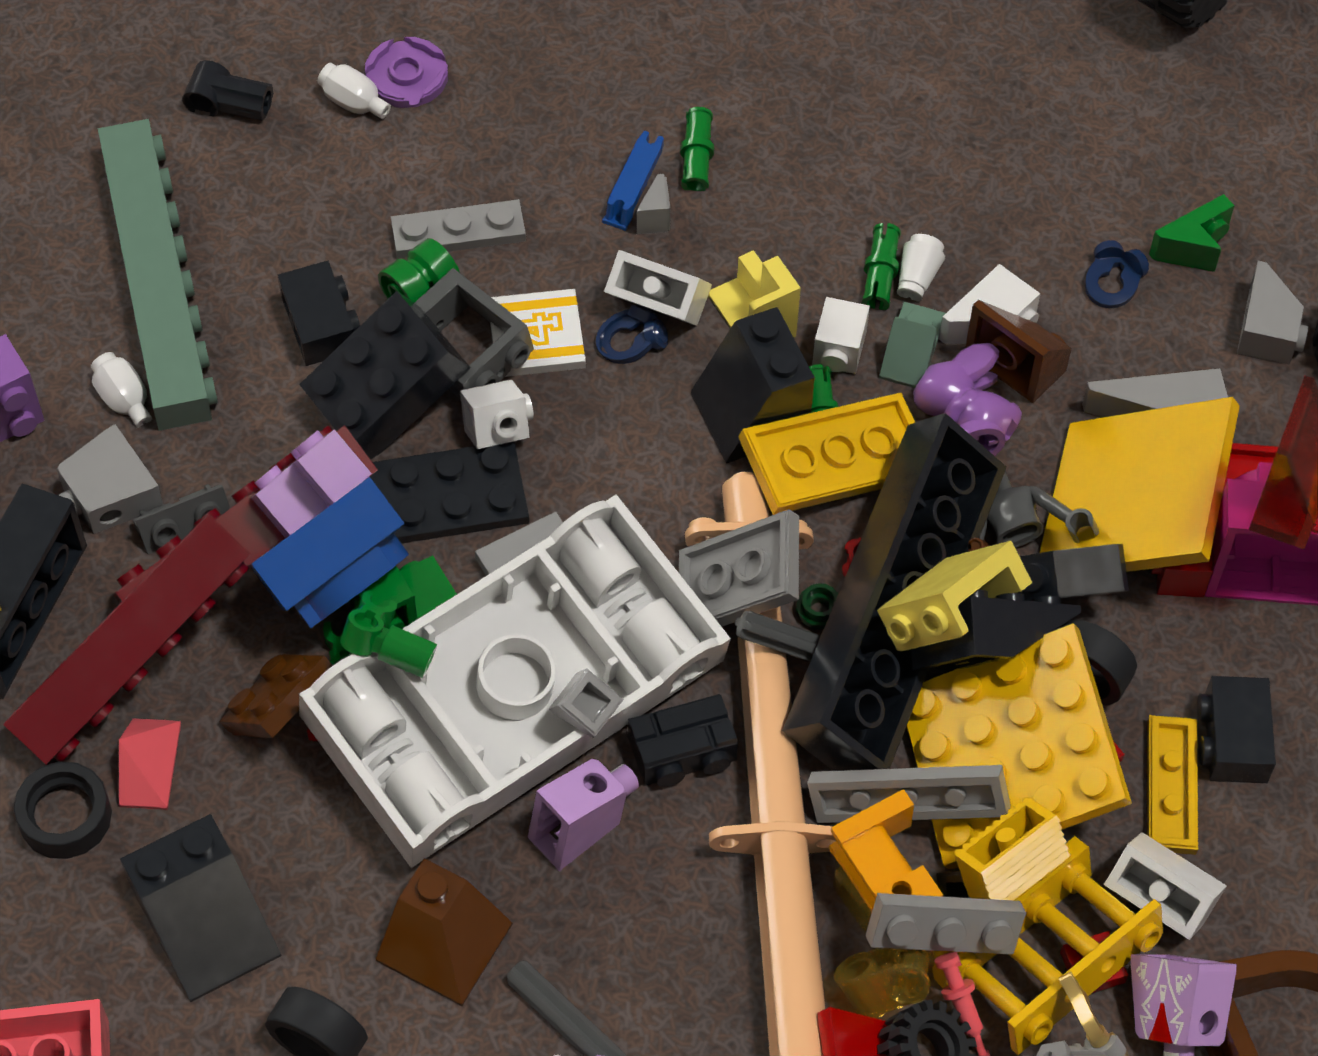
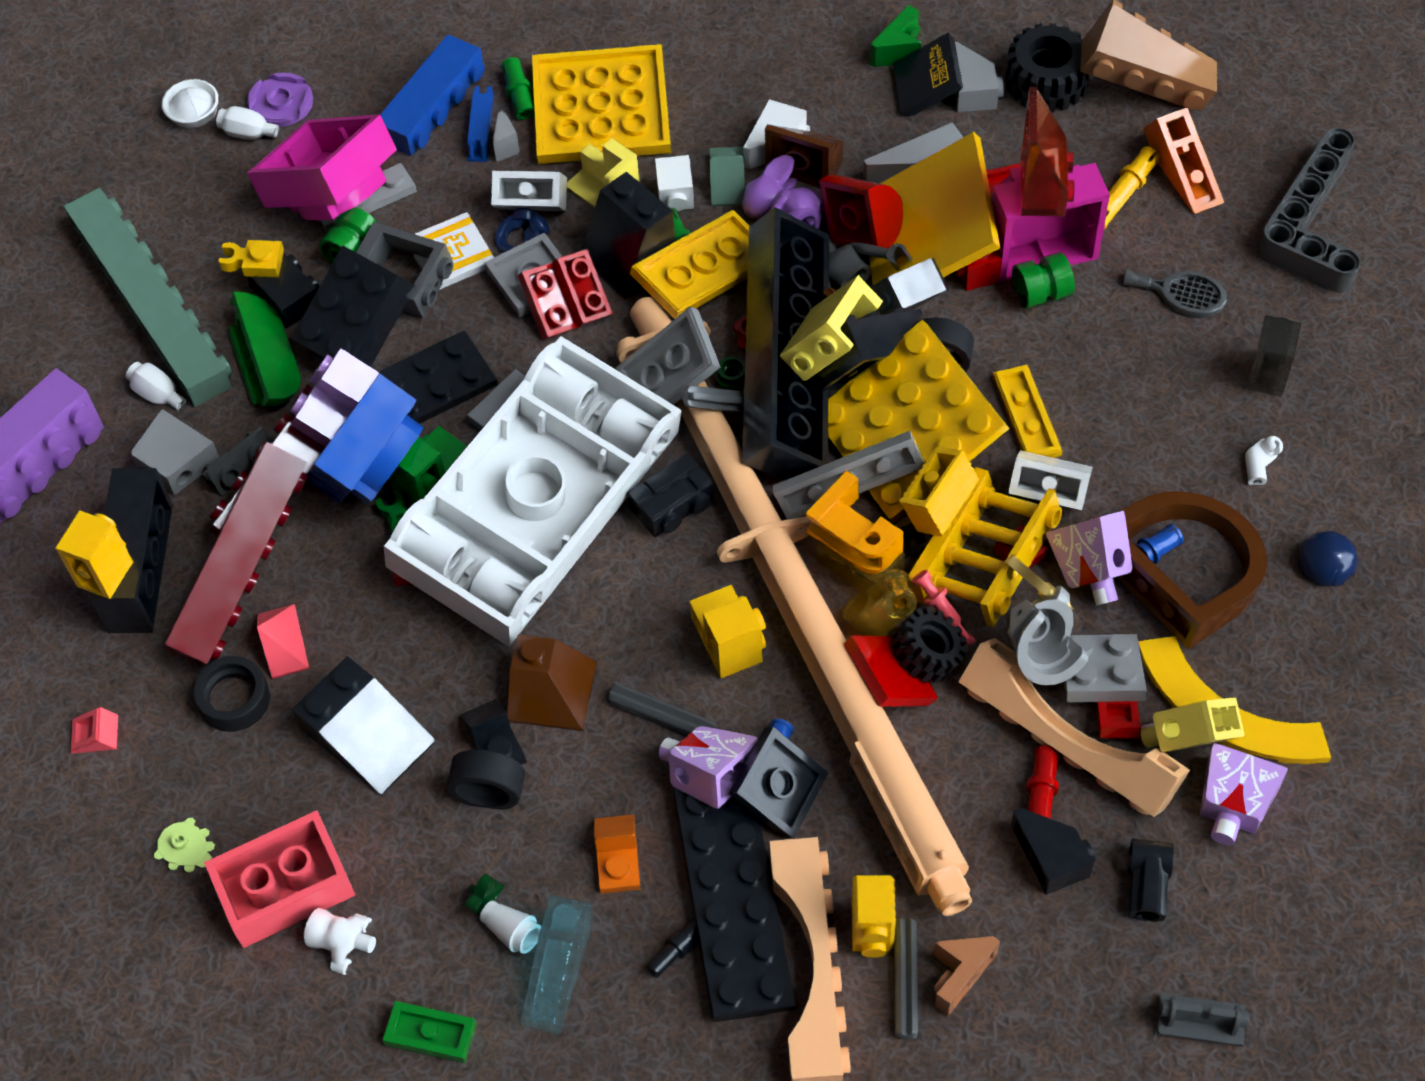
camera: 15 degrees left, 0 degrees up
(217, 90) = (140, 154): black piece -> none
(264, 388) = (263, 351): none -> green brick
(275, 696) = (360, 560): reddish brown plate -> none
(294, 271) = (258, 258): none -> yellow plate
(298, 43) = (190, 103): none -> white hat
(351, 972) = (492, 731): none -> black slope
(367, 634) = (418, 486): green bar -> none
(420, 179) = (325, 166): none -> dark pink container
(496, 413) = (444, 314): white brick -> none
(586, 124) = (432, 93): none -> blue brick
(586, 703) = (595, 486): light grey slope -> none
(587, 805) = (624, 558): lavender torso -> none
(622, 395) = (506, 267): none -> light grey plate
(651, 435) = (564, 294): none -> red slope
(686, 941) = (729, 630): none -> yellow brick
(791, 198) = (597, 98): none -> yellow plate
(881, 266) = (683, 127): green pin -> none
(919, 265) = (711, 119): white cone -> none
(945, 923) = (911, 551): light grey plate -> none
(1058, 450) = (861, 211): none -> red brick
(1108, 256) = (844, 72): dark blue piece -> none
(1214, 295) = (927, 75): none -> black tile
(1238, 729) = (1059, 361): black brick -> none
(1262, 615) = (1049, 279): none -> green wheel
(1275, 1017) = (1160, 543): none -> blue pin

